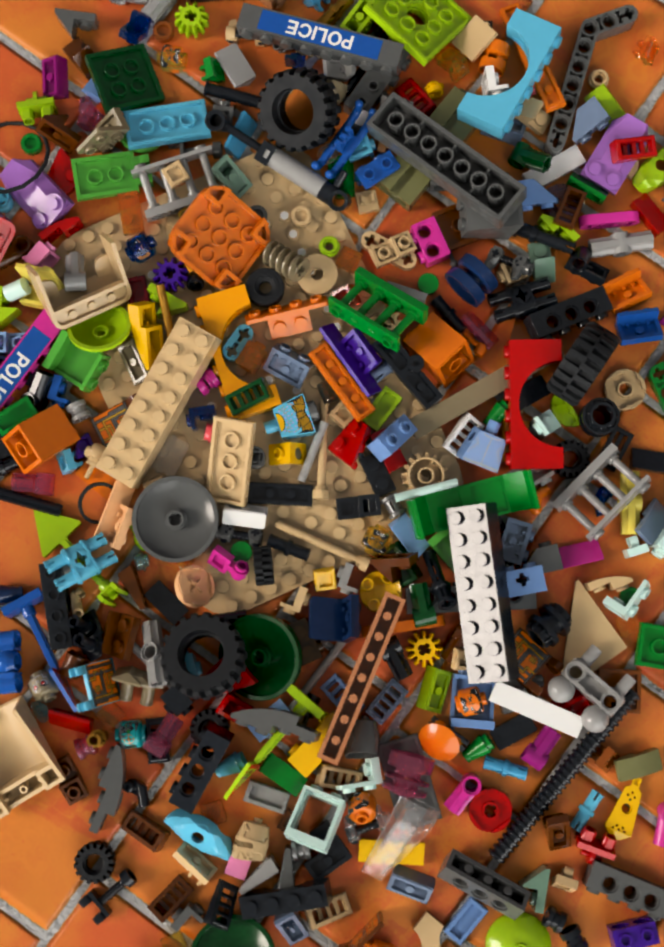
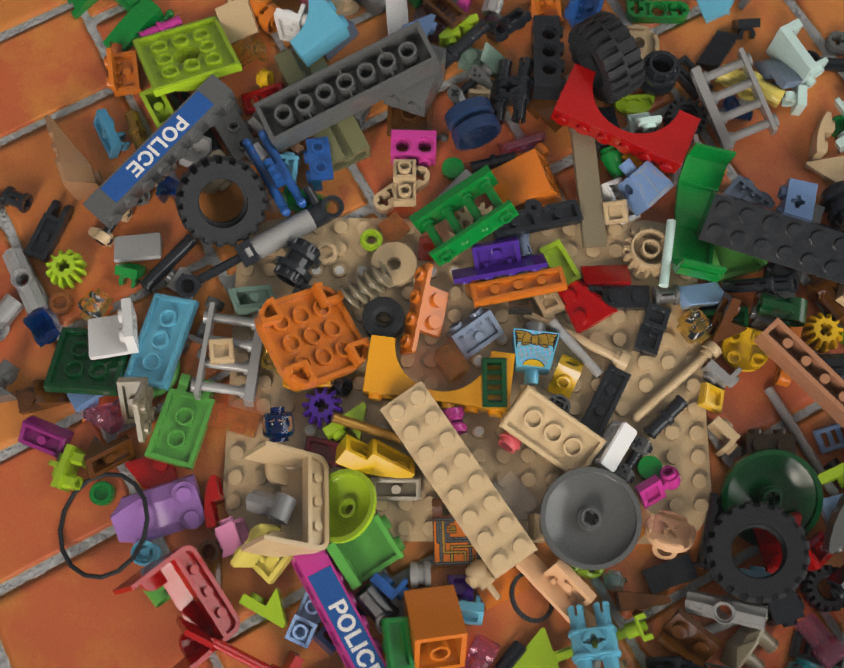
camera: 65 degrees left, 10 degrees down
(16, 289) = (255, 579): light aqua piece -> none
(154, 85) = (114, 334): none -> white bracket
(204, 413) = (487, 439): clear blue bracket -> none
(234, 339) = (431, 369): medium azure beam -> none
(247, 125) = (218, 284): dark azure slope -> none
(263, 565) = (678, 448): black tyre -> none
(277, 196) = (299, 258): none -> black piece
(334, 618) = (760, 402): dark blue bracket -> none
(367, 202) = (343, 187): tan tile -> none
(392, 438) = (599, 262): medium blue brick -> none
(448, 434) = (616, 212): none -> tan tile
(525, 156) = (373, 29): dark green piece -> none
(547, 556) = (772, 177): dark grey slope -> none
(580, 553) = (781, 151): dark pink slope -> none

